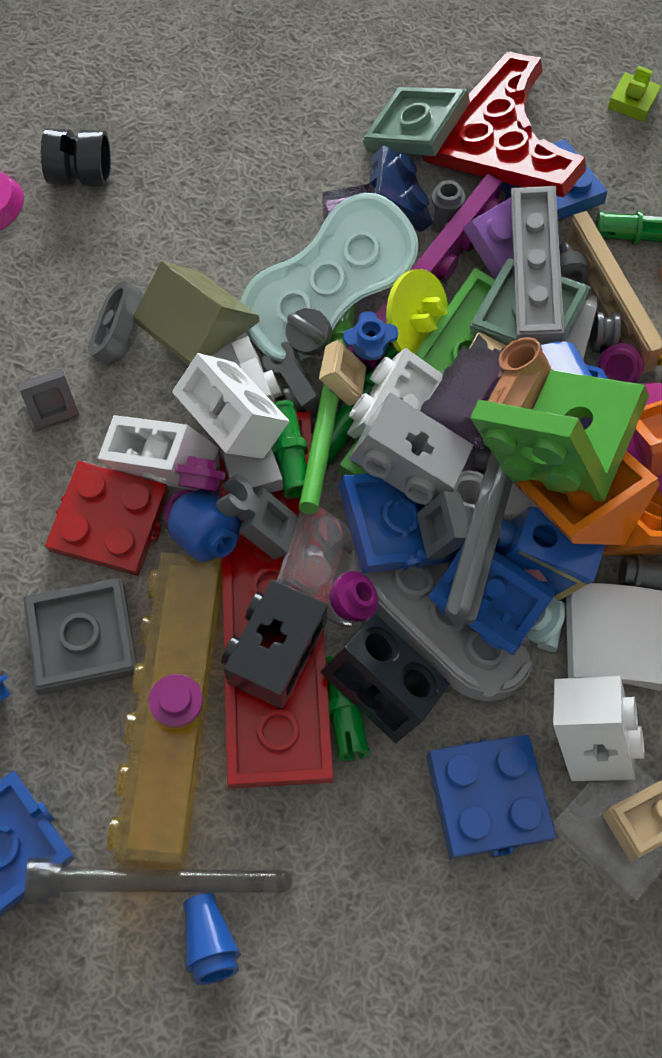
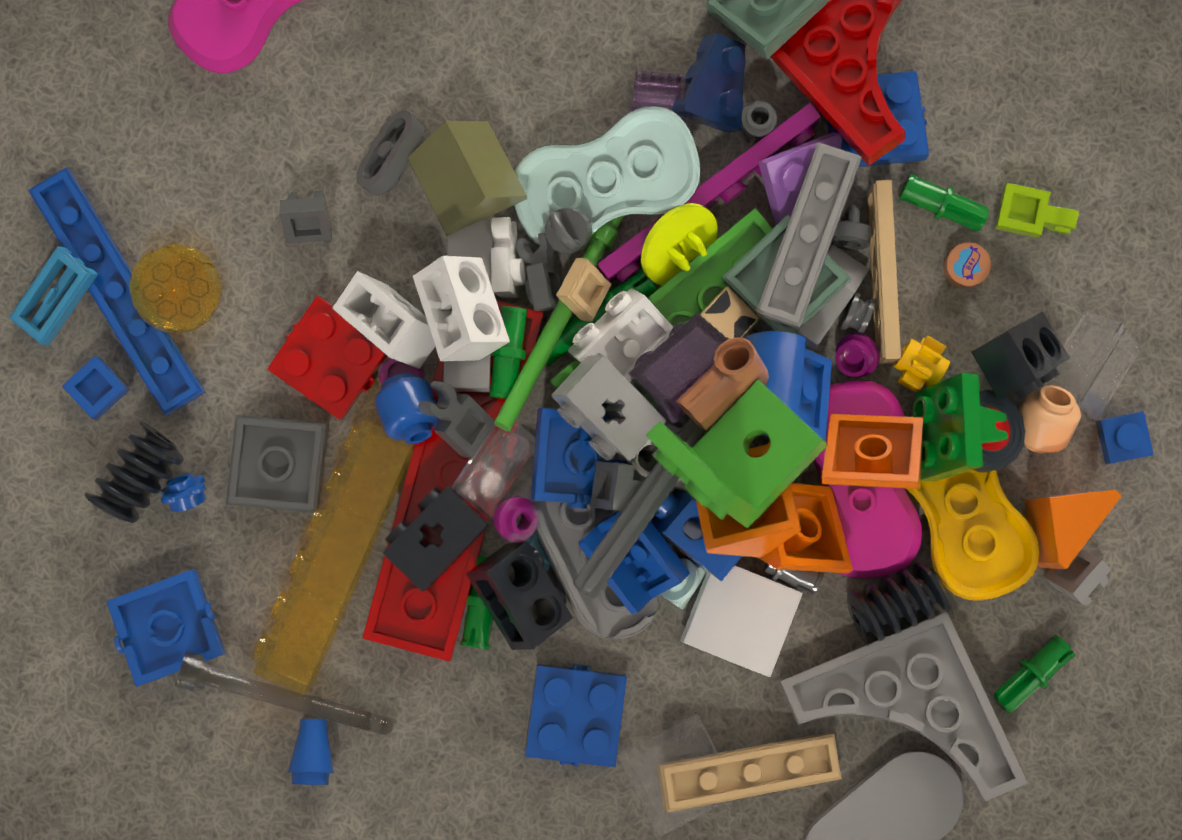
camera: 15 degrees right, 20 degrees up
(175, 700) = (336, 564): magenta plate -> none
(200, 474) = (413, 369): magenta plate -> none
(370, 347) = (618, 276): blue plate -> none
(597, 728) = (675, 701): white brick -> none
(635, 94) = (1016, 34): lime tile -> none

